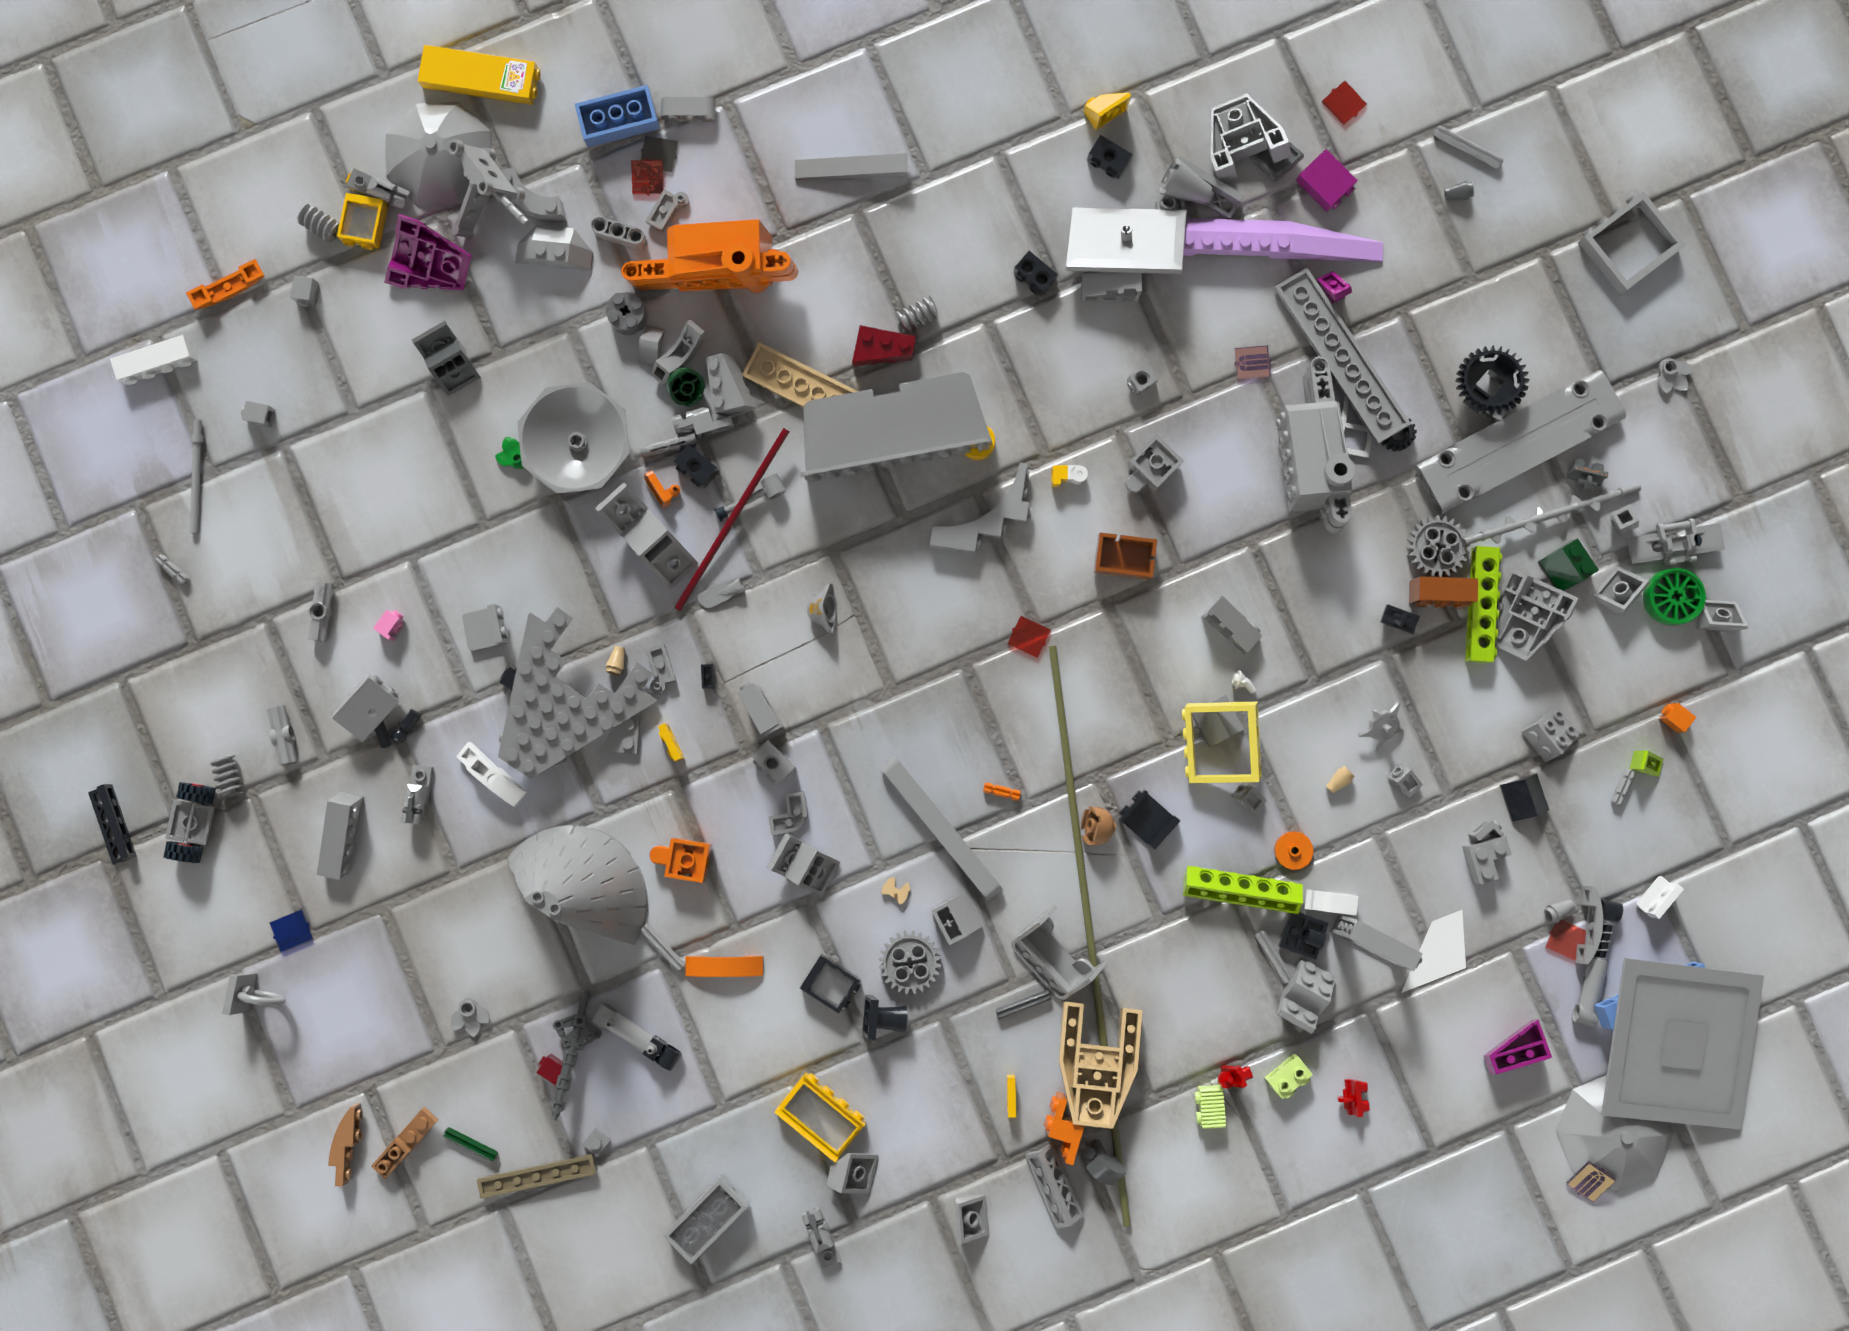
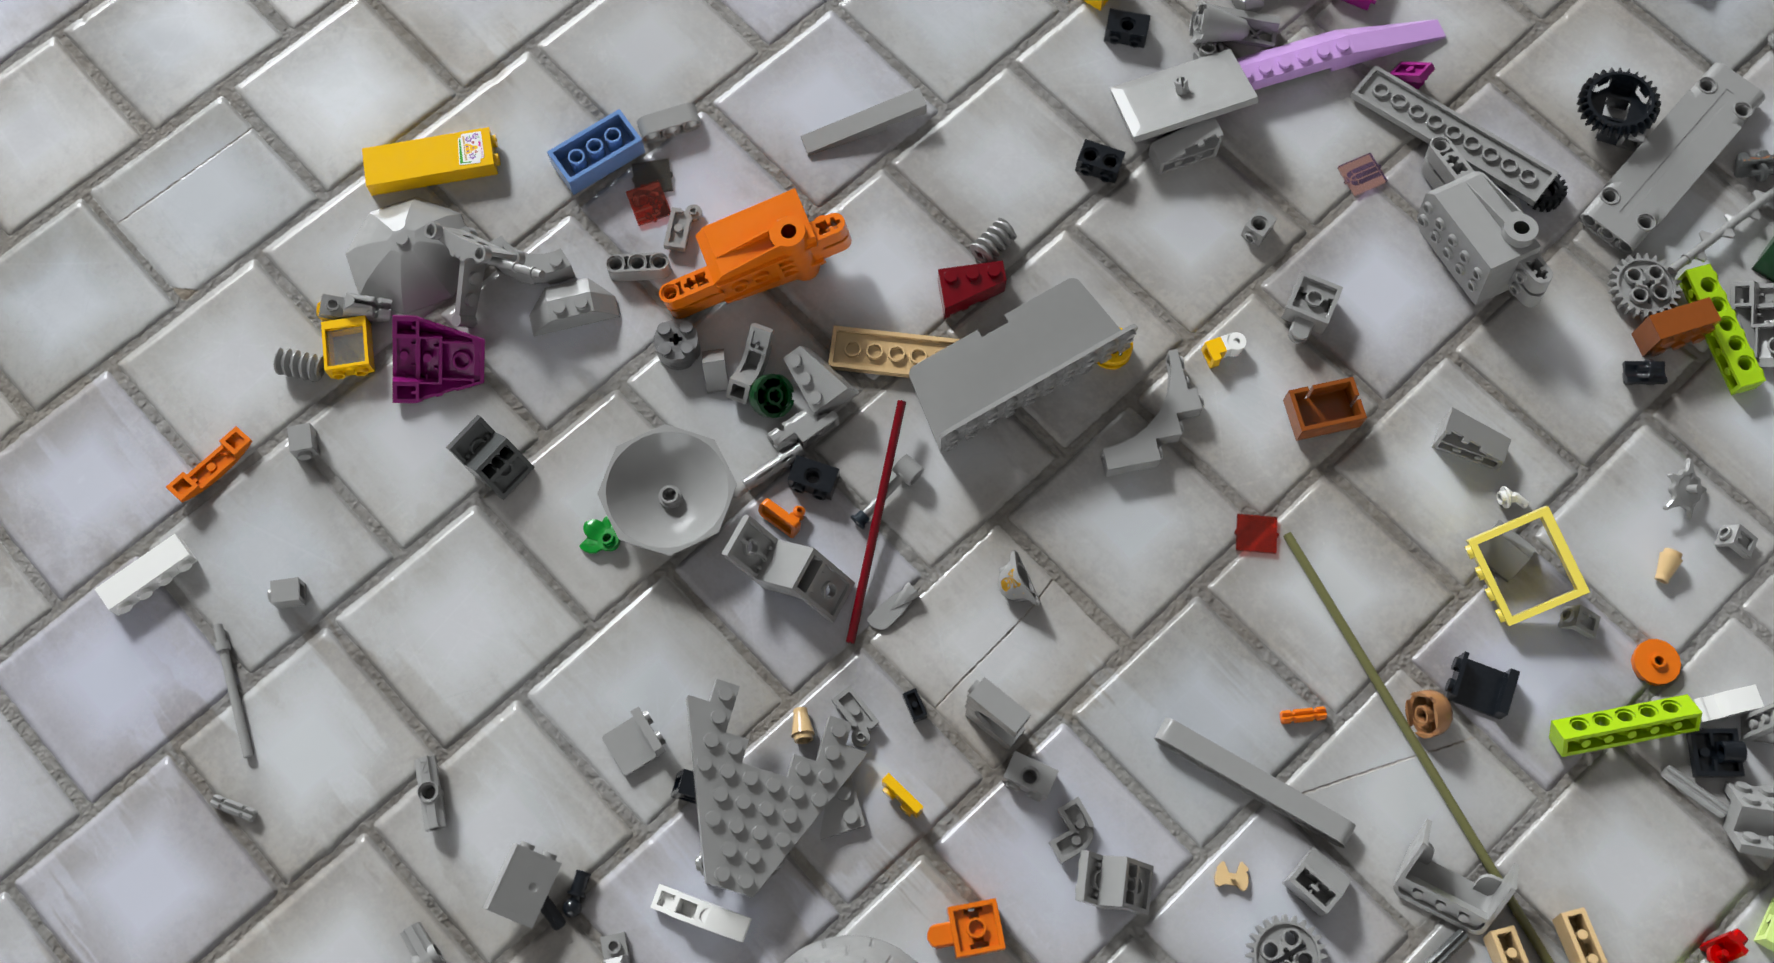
camera: 20 degrees left, 15 degrees down
(389, 624) = (518, 778): bright pink brick -> none

